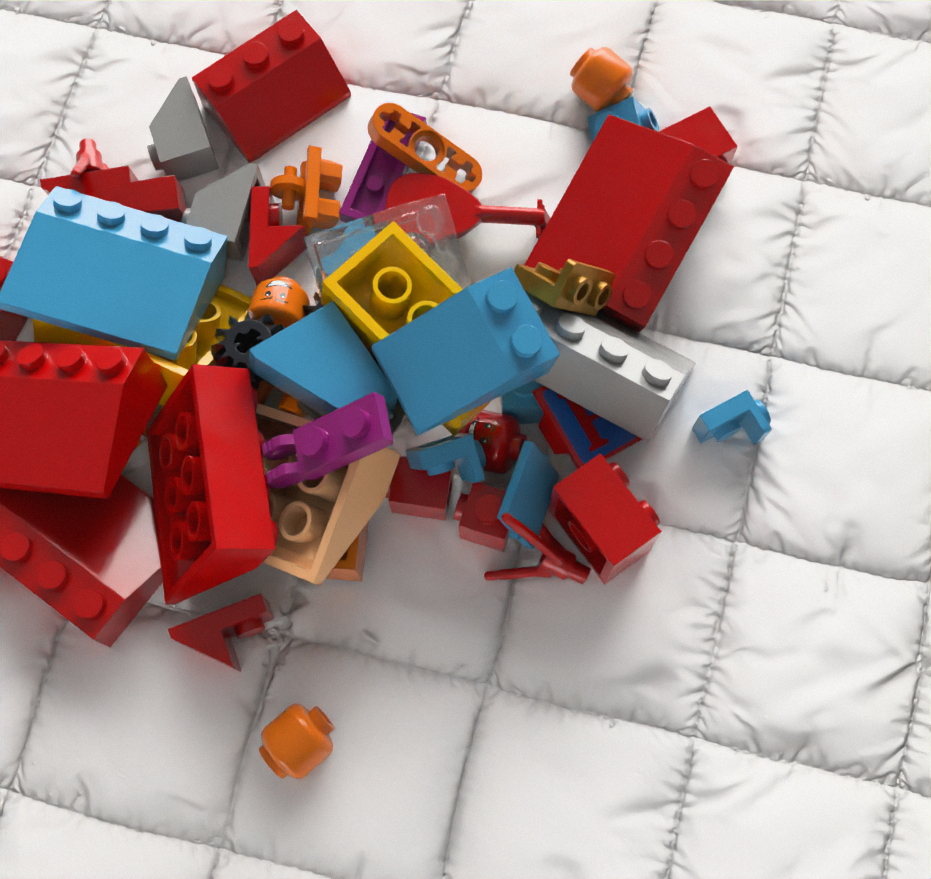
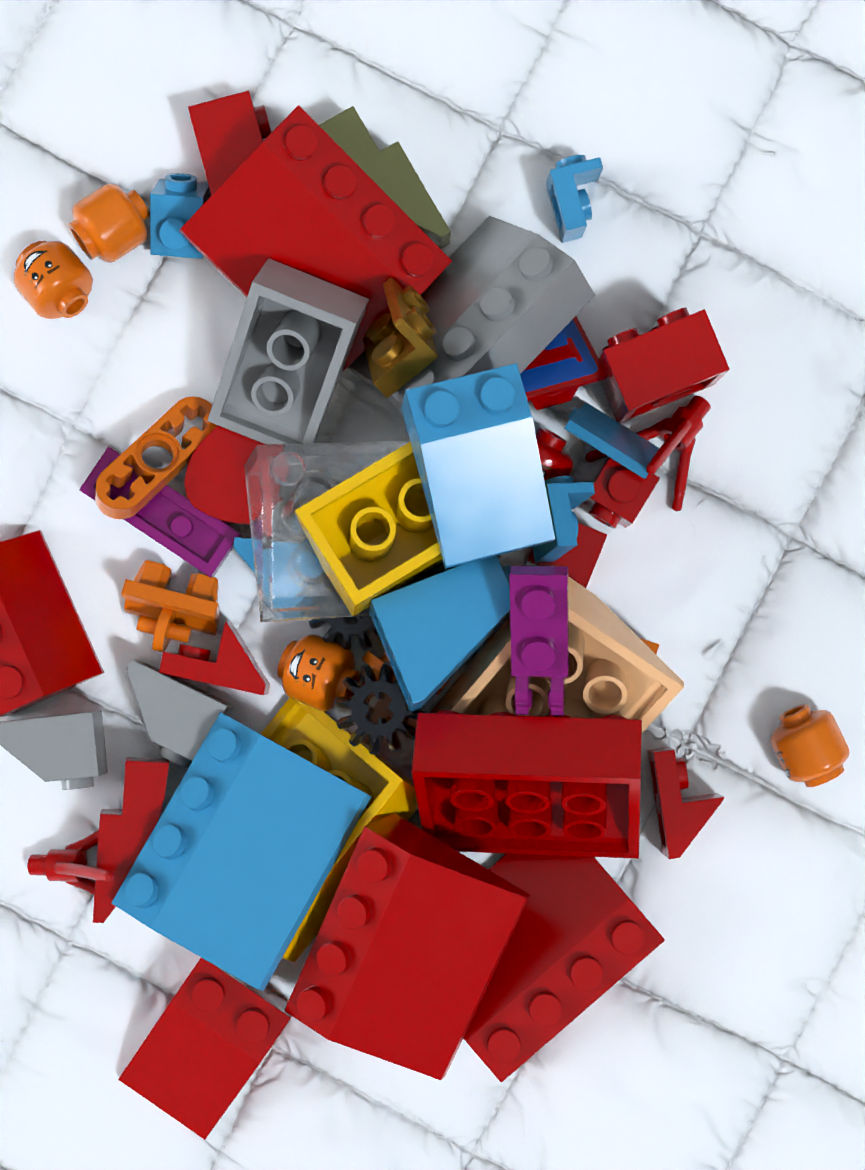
camera: 80 degrees left, 15 degrees up
(530, 213) = (286, 356): none -> light grey slope
(547, 50) = (52, 279): none -> orange head
(703, 267) = (390, 171): none -> olive slope

